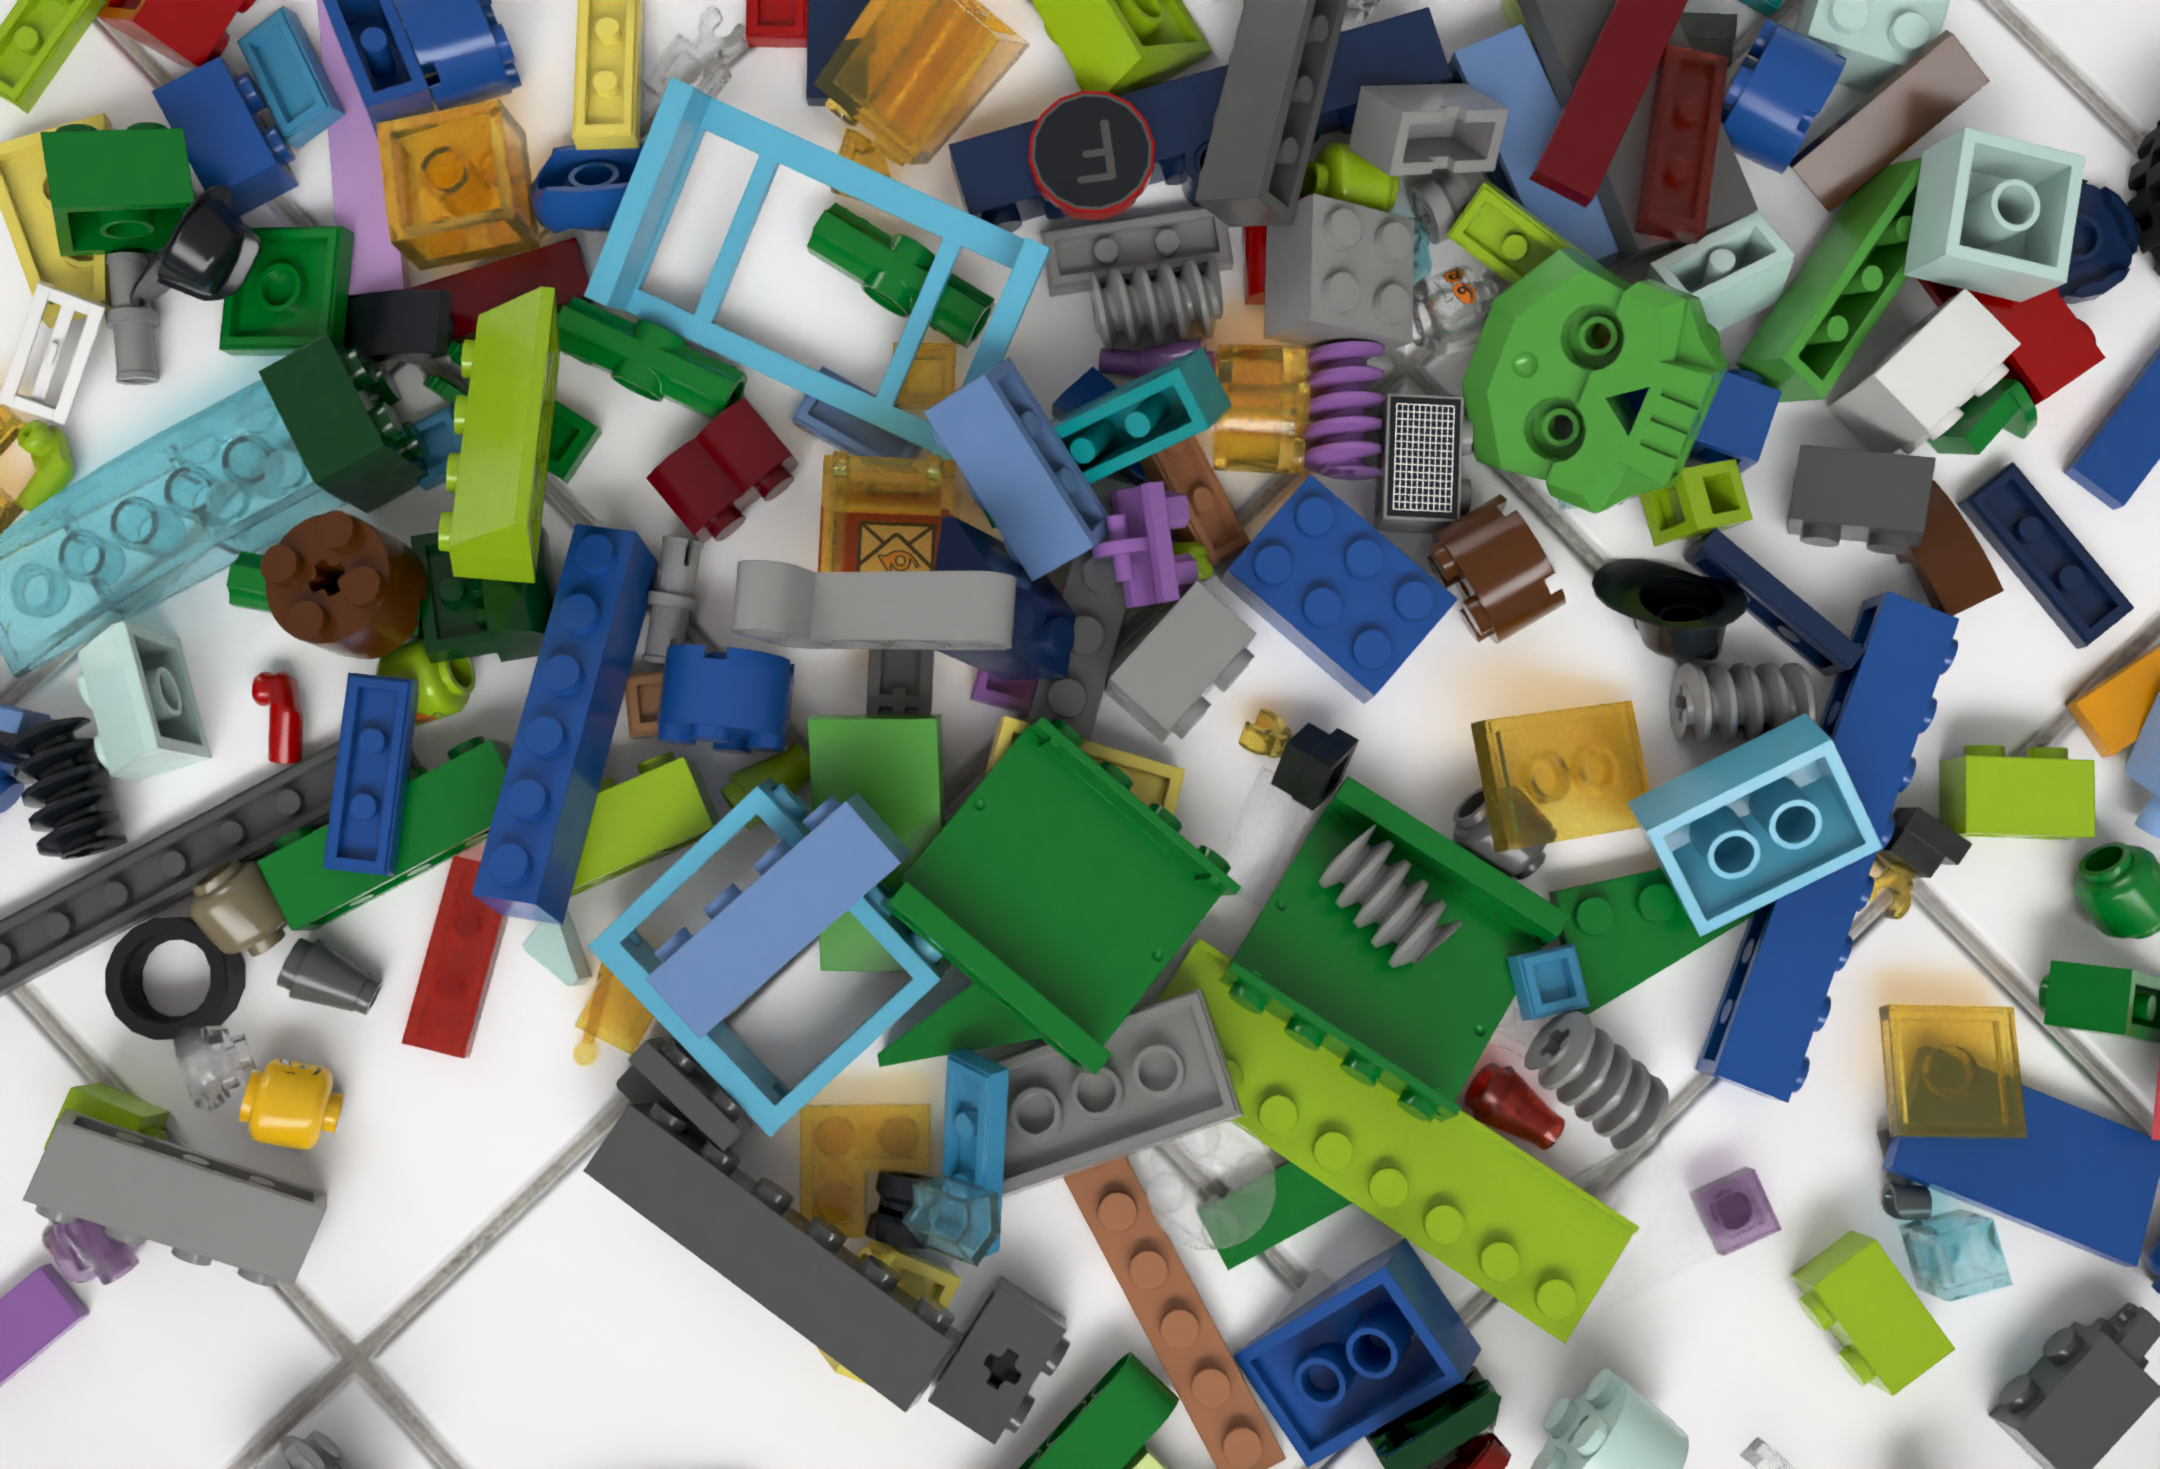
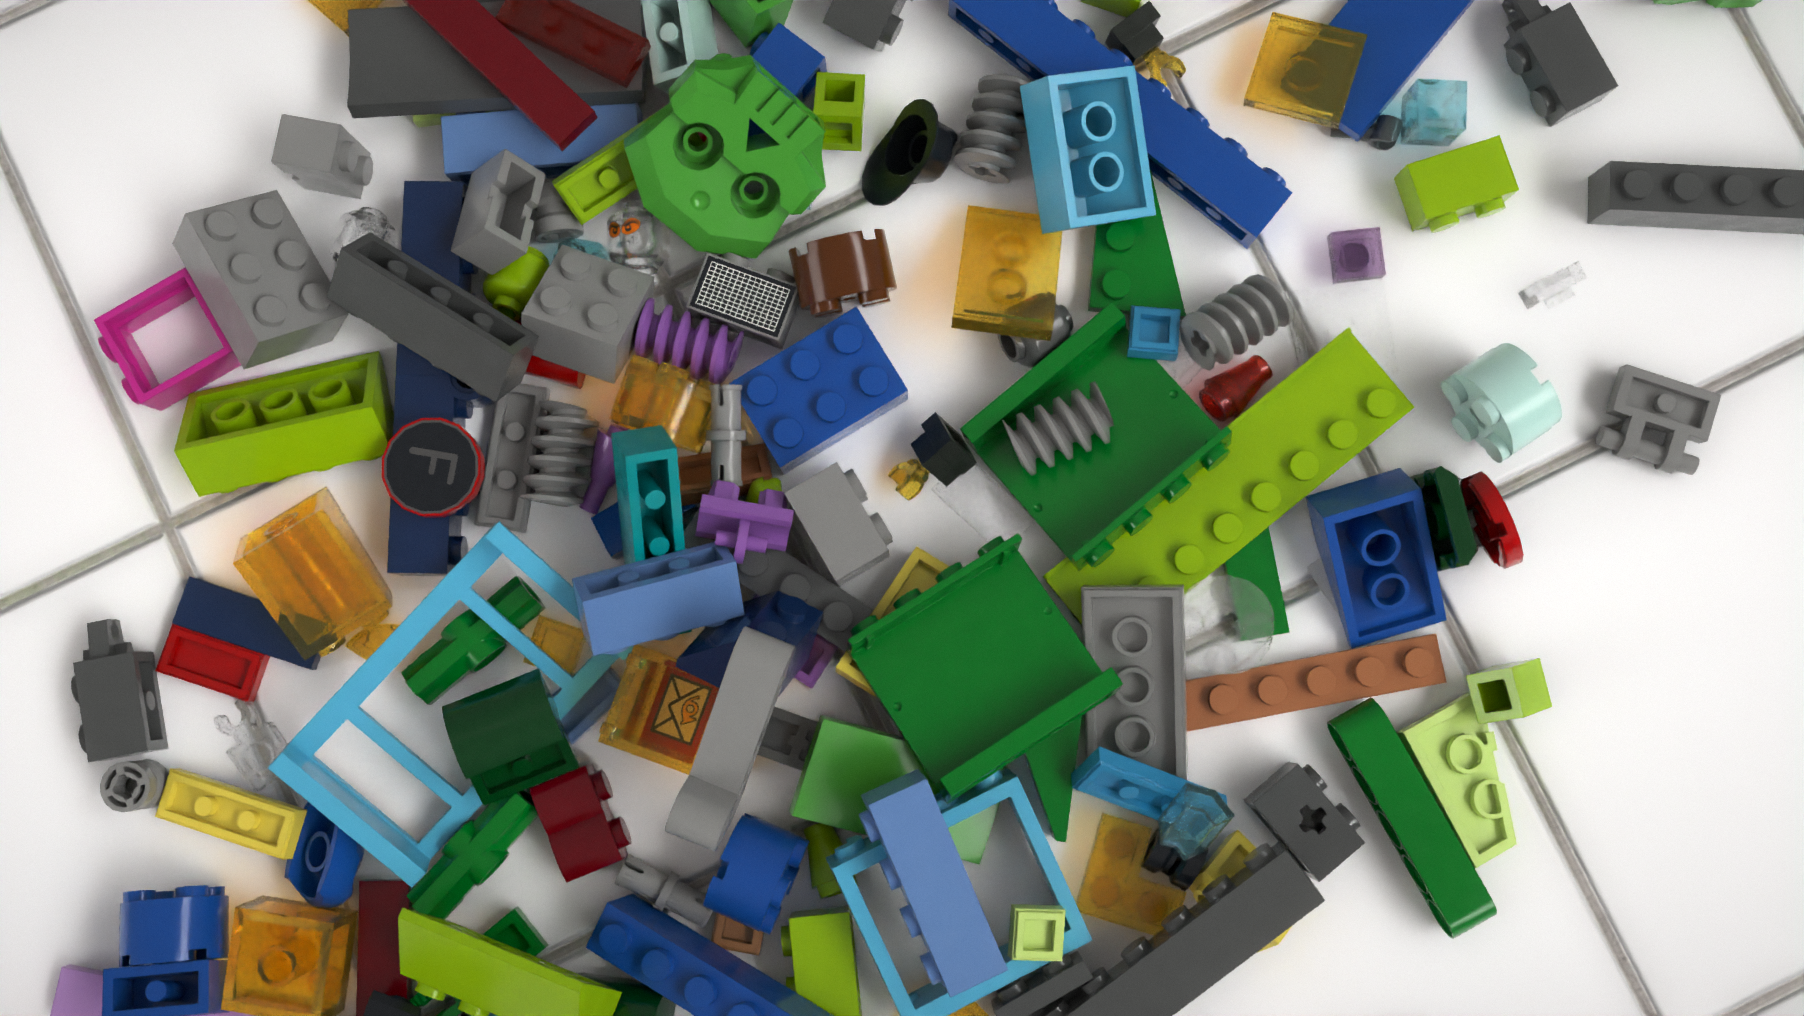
camera: 65 degrees left, 0 degrees up
(757, 1063) = (1036, 932): none -> yellowish green tile
(796, 351) = (509, 737): none -> dark green brick
(1247, 490) = (726, 433): none -> light grey pin
(1775, 604) = (931, 80): dark blue tile -> none

